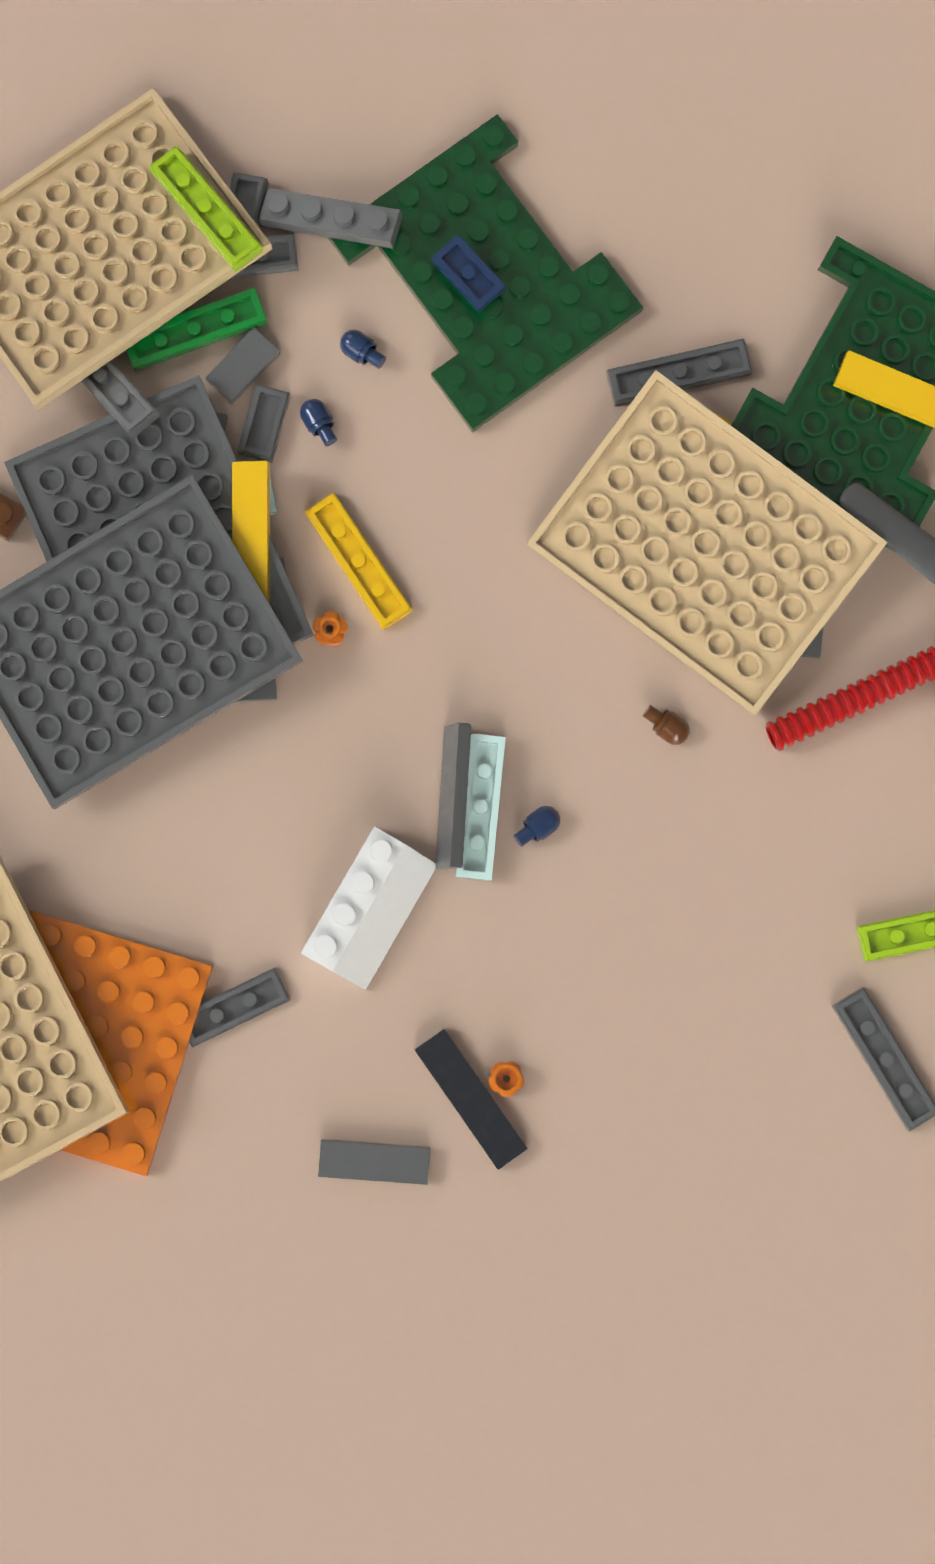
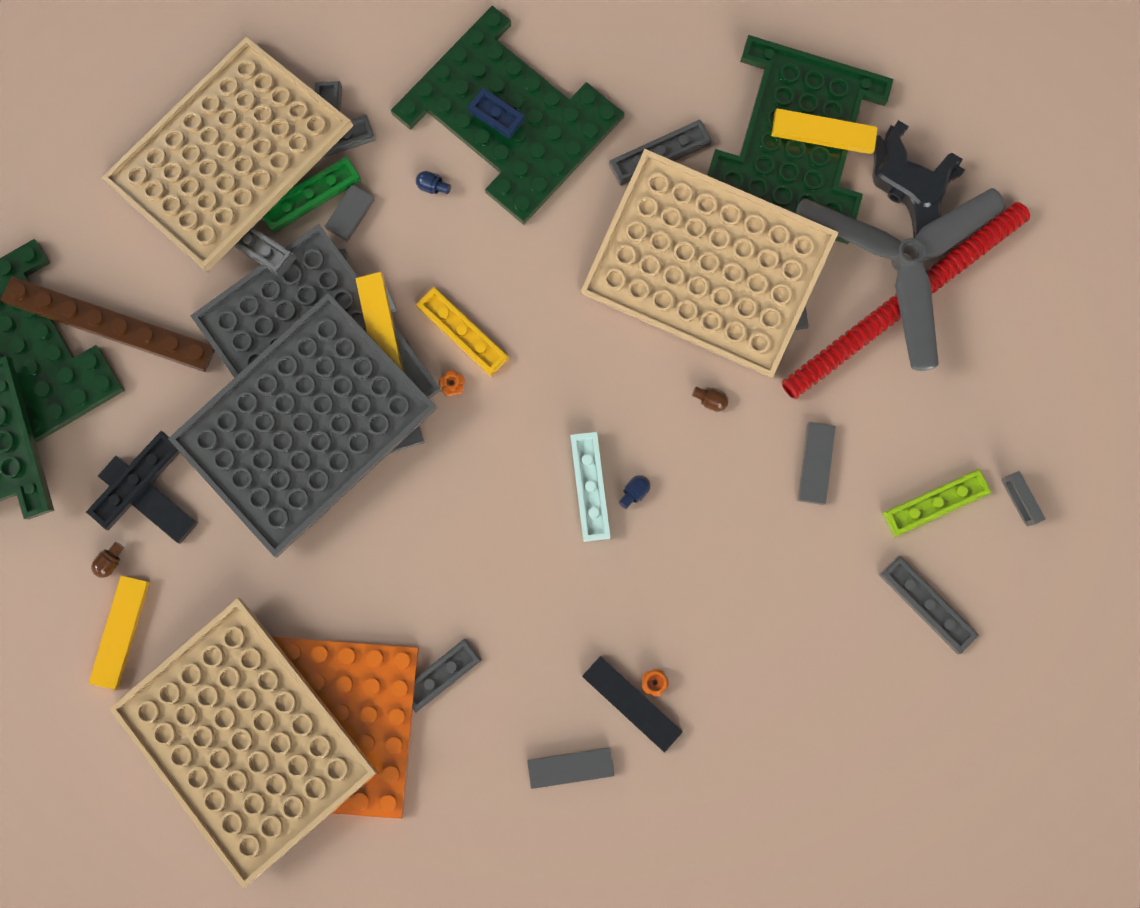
camera: 10 degrees left, 5 degrees down
(206, 208) = (300, 107): lime tile -> none
(263, 423) = (373, 249): dark grey tile -> none
(318, 420) = (412, 239): dark blue cylinder -> none
(330, 218) = (390, 97): dark grey plate -> none
(369, 908) = (525, 578): white slope -> none
(453, 796) = (568, 483): dark grey tile -> none
(785, 842) = (816, 463): none -> dark grey tile

